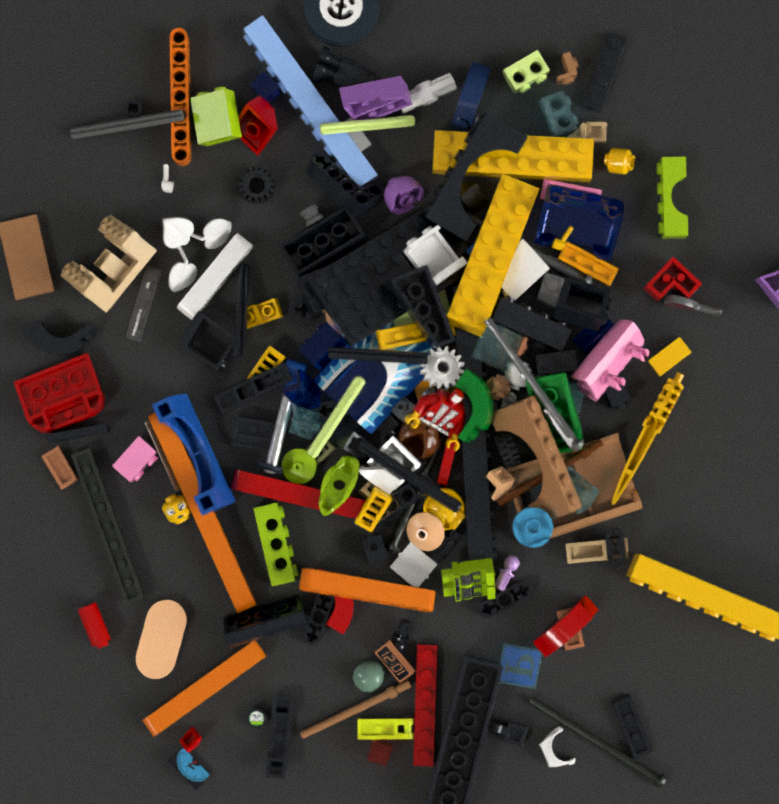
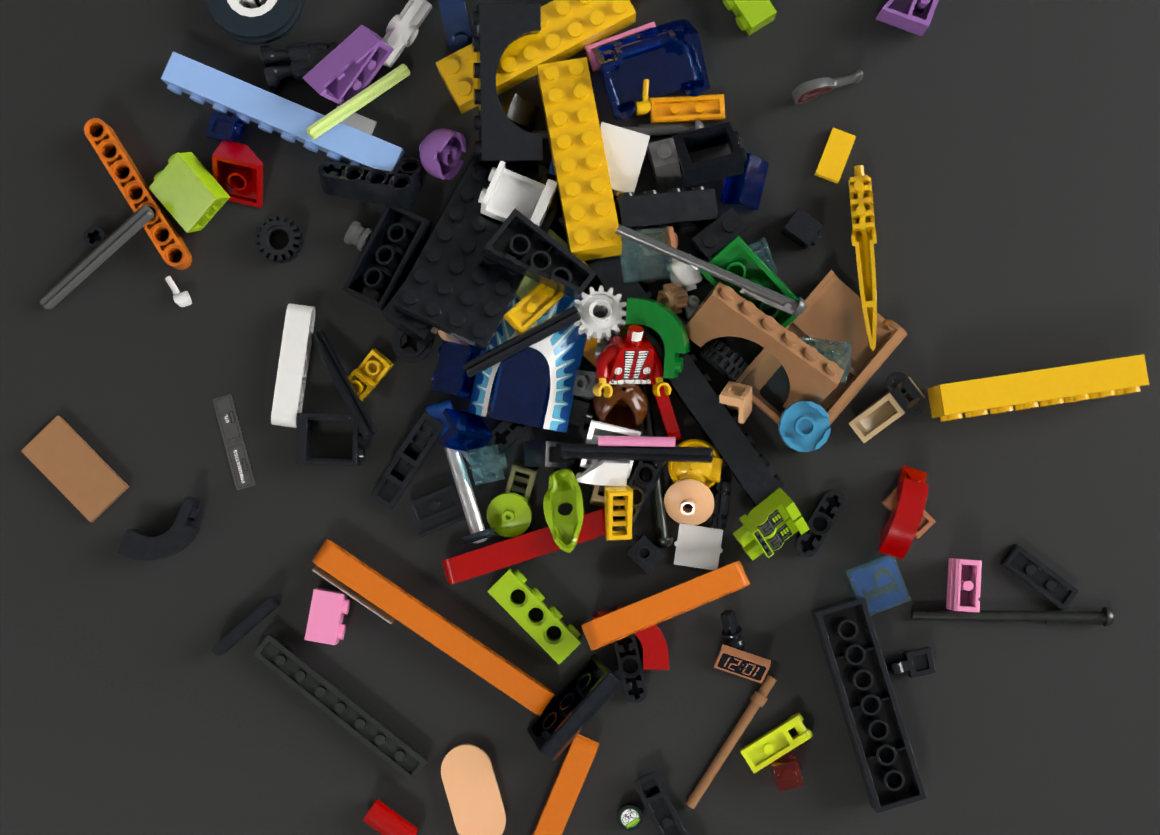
camera: 25 degrees left, 0 degrees up
(60, 467) = (250, 675): nougat tile -> none
(61, 395) = (202, 595): red plate -> none
(119, 271) = (183, 422): tan piece -> none
(176, 509) = (403, 643): yellow head -> none
(178, 233) = (220, 341): white plant -> none
(212, 486) = (347, 540): blue arch -> none
(260, 363) = (401, 408): yellow slope -> none
(336, 416) = (516, 439): yellowish green axle -> none
(368, 676) = (723, 696): sand green hair -> none
(414, 468) = (636, 441): none -> bright pink bar
(425, 705) = (803, 690): red plate -> none
(511, 564) = (802, 481): lavender axle -> none
(546, 746) = (962, 655): white helmet -> none
(576, 699) = (963, 585): none -> bright pink brick
(584, 453) = (778, 369): reddish brown bar -> none
(609, 359) = (773, 194): bright pink piece -> none
(672, 276) = (787, 66): red brick -> none

